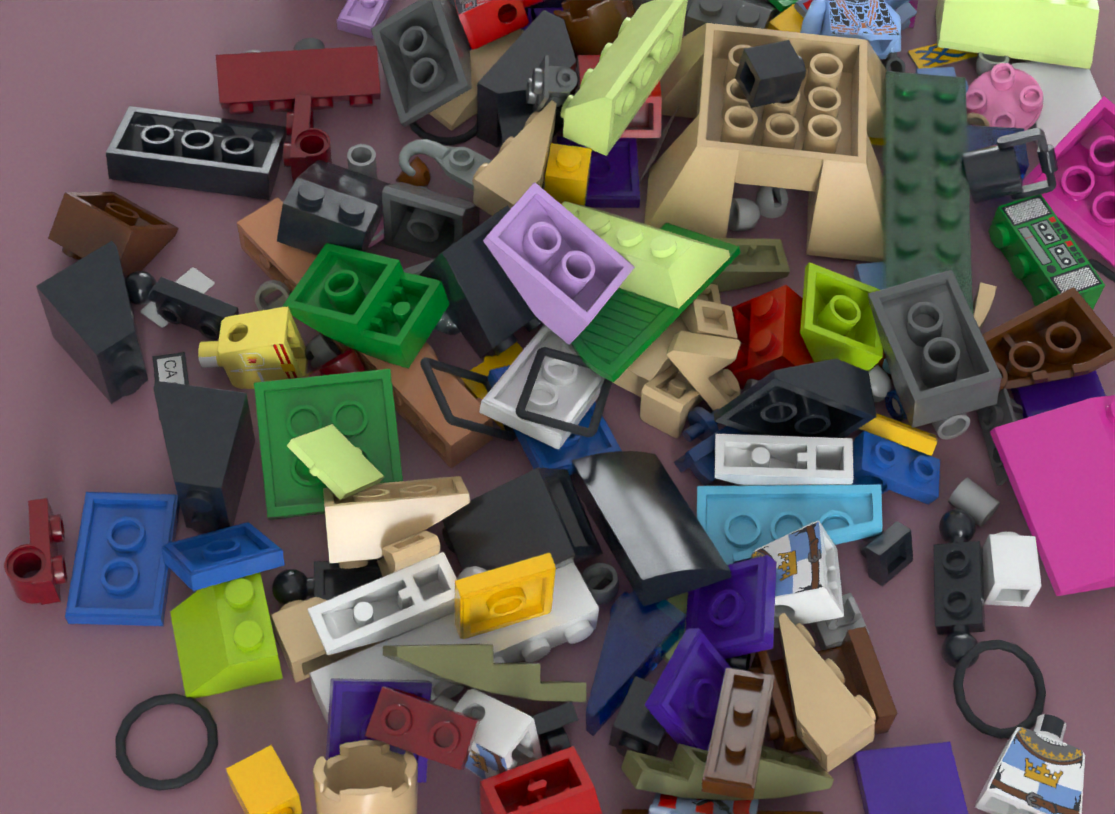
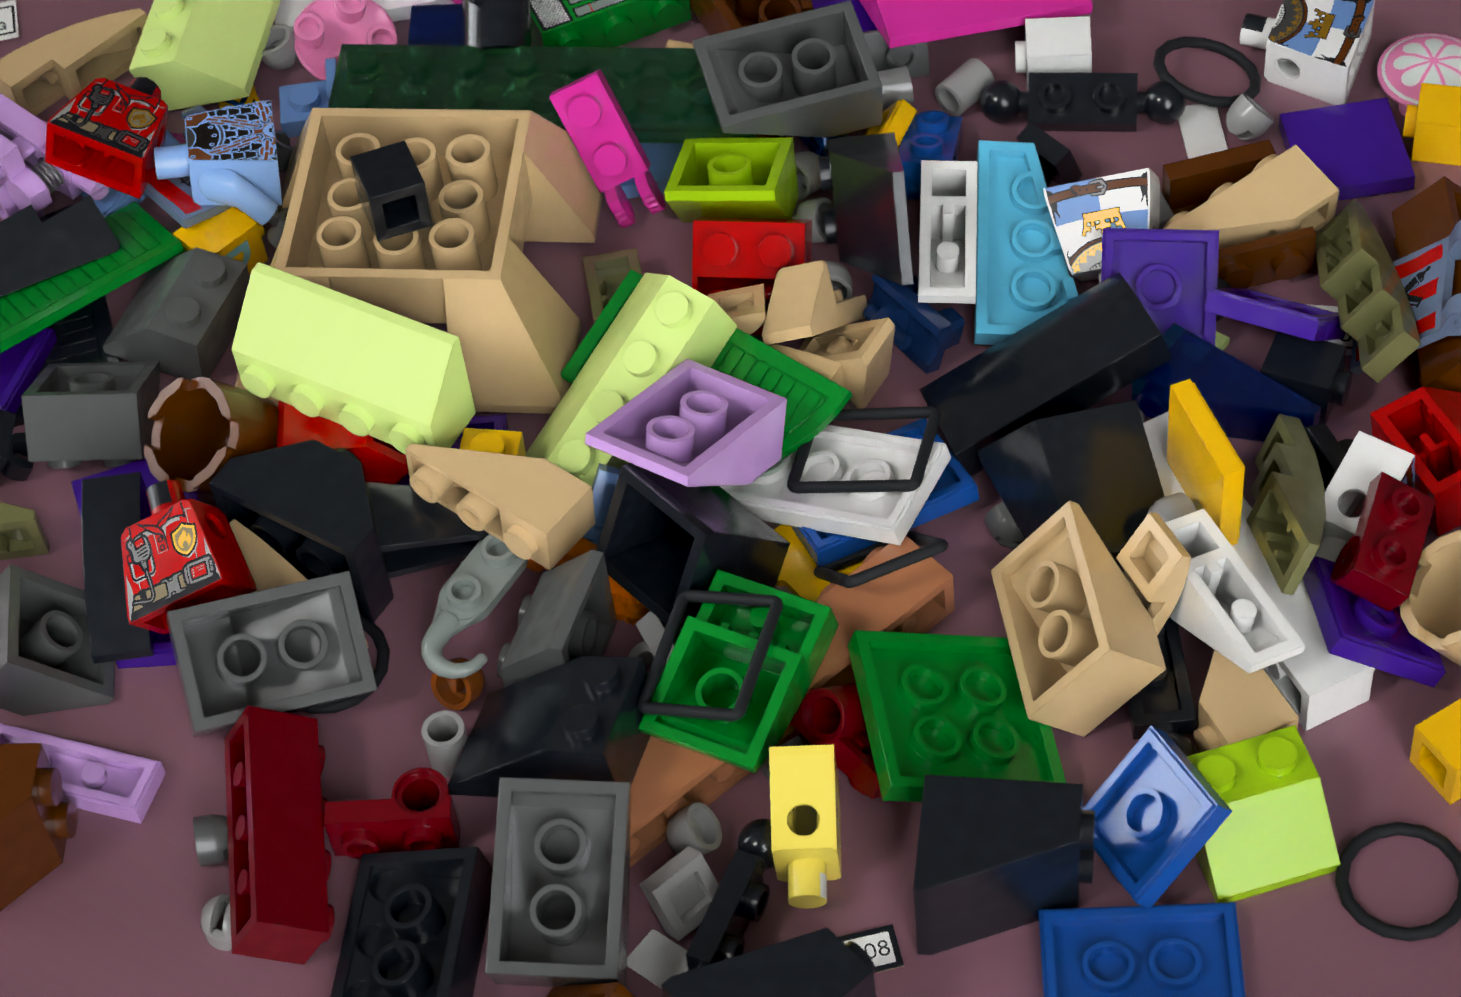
camera: 80 degrees left, 5 degrees down
(211, 207) = (560, 883): none -> dark grey slope
(226, 283) = (681, 892): none -> light grey tile
(335, 461) = (1012, 674): yellowish green piece -> none
(359, 297) = (752, 674): none -> black piece
(549, 84) = (398, 440): dark grey hinge -> none
(738, 734) = (1334, 255): tile -> none
(875, 236) = (607, 144): none -> dark pink hinge
(926, 686) = (1202, 130): none -> white sticker
(944, 723) = (1247, 118): none -> light grey hinge
(969, 445) = (896, 85): none -> light grey hinge

